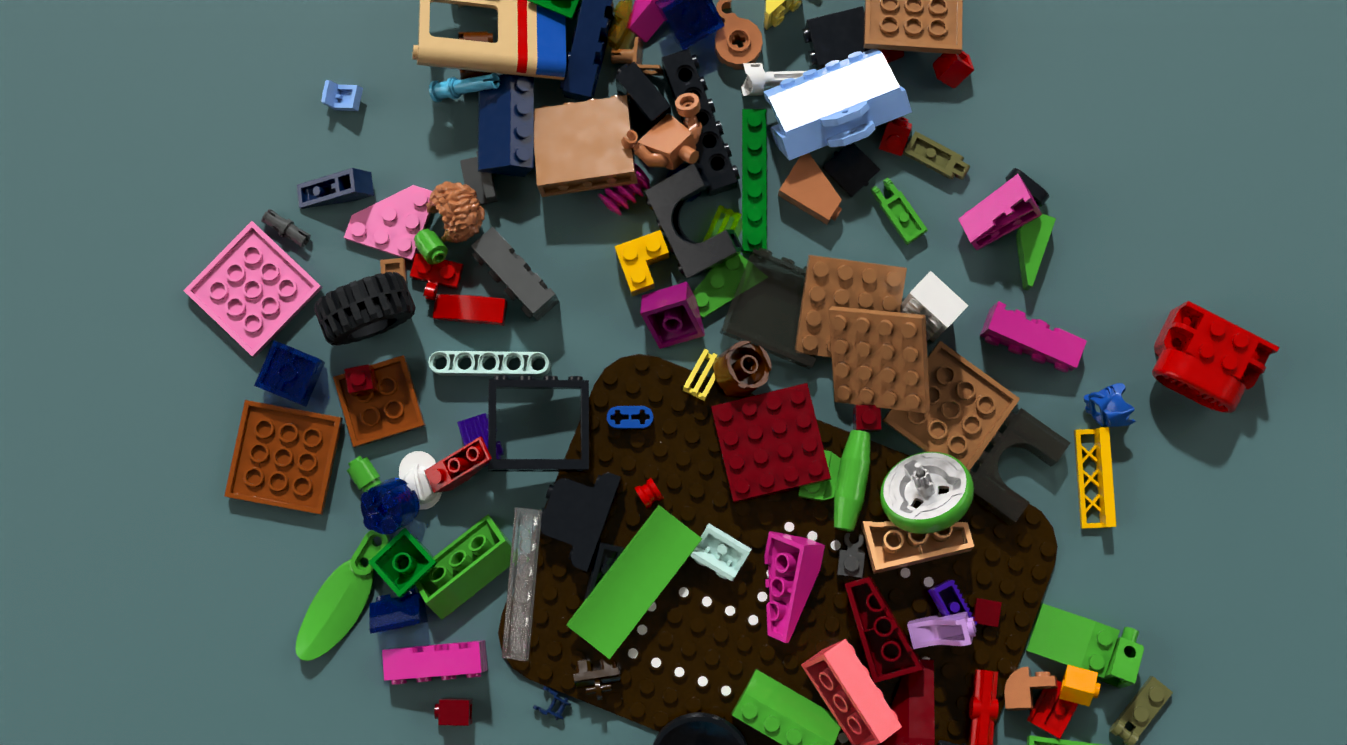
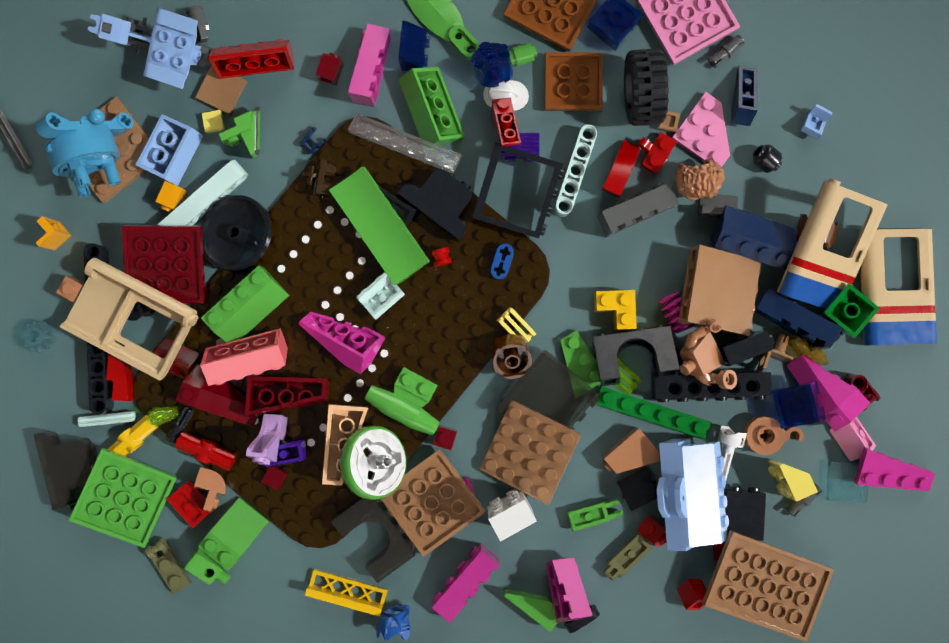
camera: 105 degrees right, 5 degrees up
(361, 380) = (592, 70): dark red brick -> none
(403, 562) = (448, 63): green slope -> none
(404, 139) = (767, 158): none -> black head
(430, 246) = (678, 153): bright green brick -> none
(454, 88) = (795, 208): medium azure pin -> none
(672, 315) = (568, 317): magenta slope -> none
(770, 443) = (449, 359): dark red plate -> none
(850, 560) = (344, 390): dark grey plate -> none
(879, 358) = (484, 461): medium nougat plate -> none
(1079, 685) = (198, 527): light orange brick -> none

